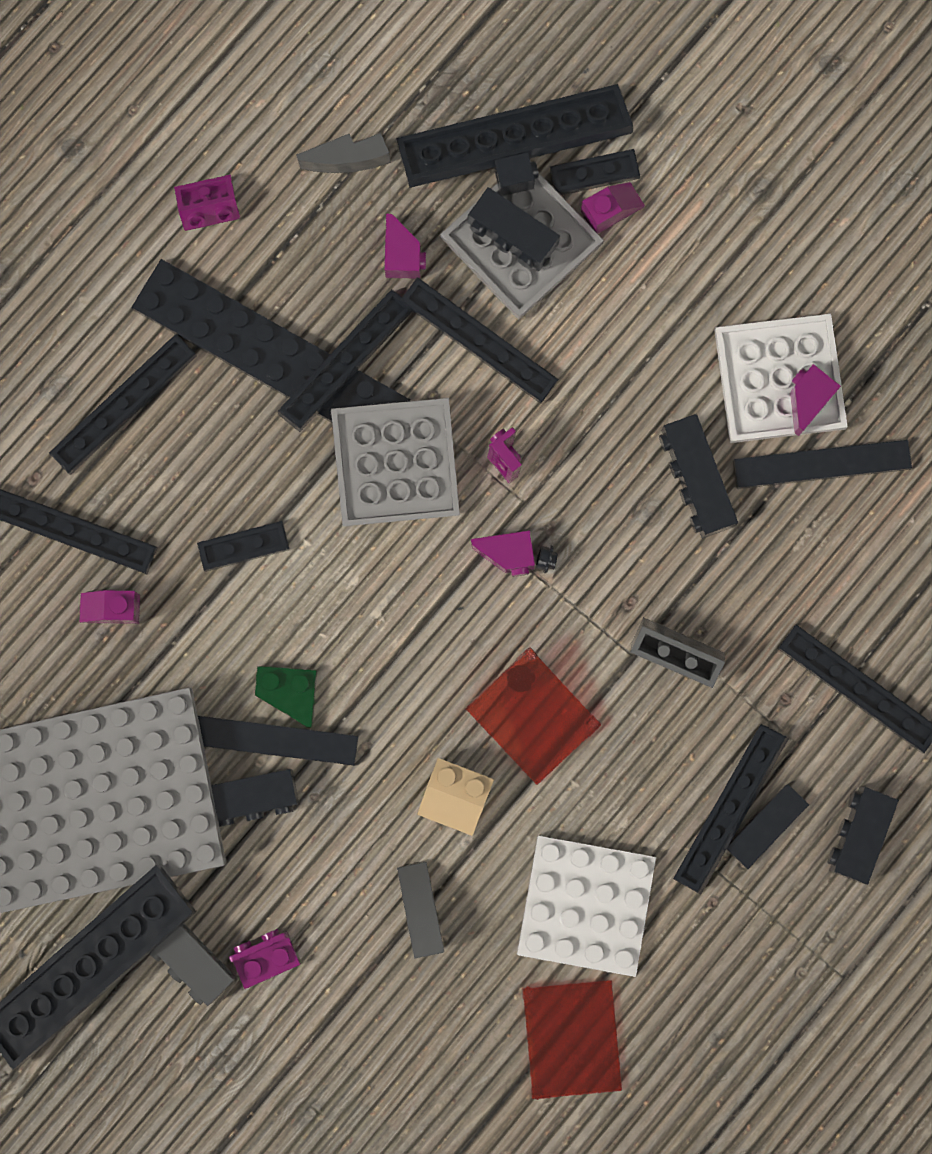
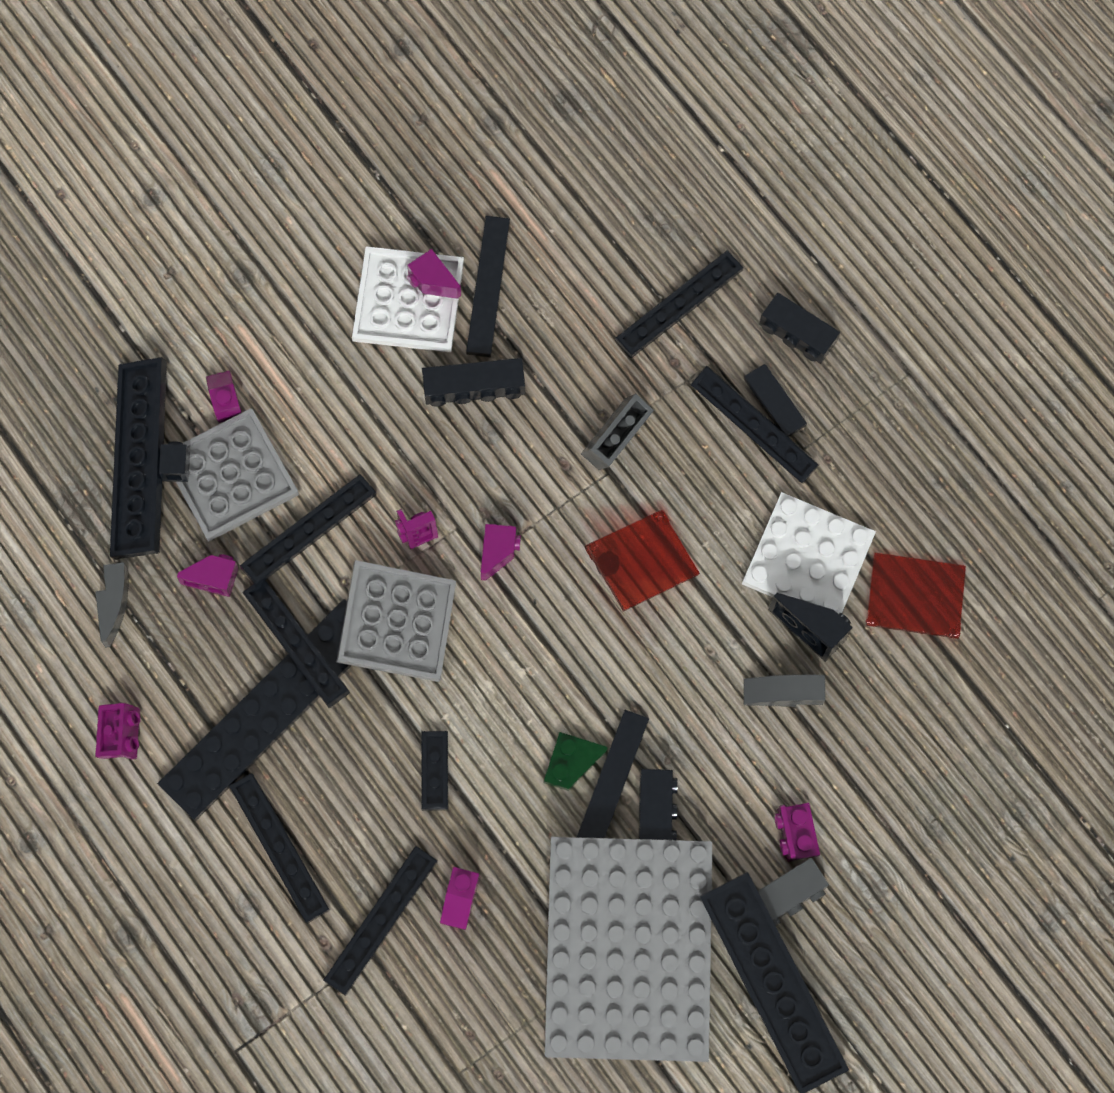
camera: 80 degrees left, 10 degrees down
(455, 796) = (694, 639): tan slope -> none
(498, 936) = (815, 625): none -> black slope
(513, 230) = (223, 475): black brick -> none
(546, 559) = (511, 518): black plate -> none
(595, 172) = (188, 402): black tile -> none

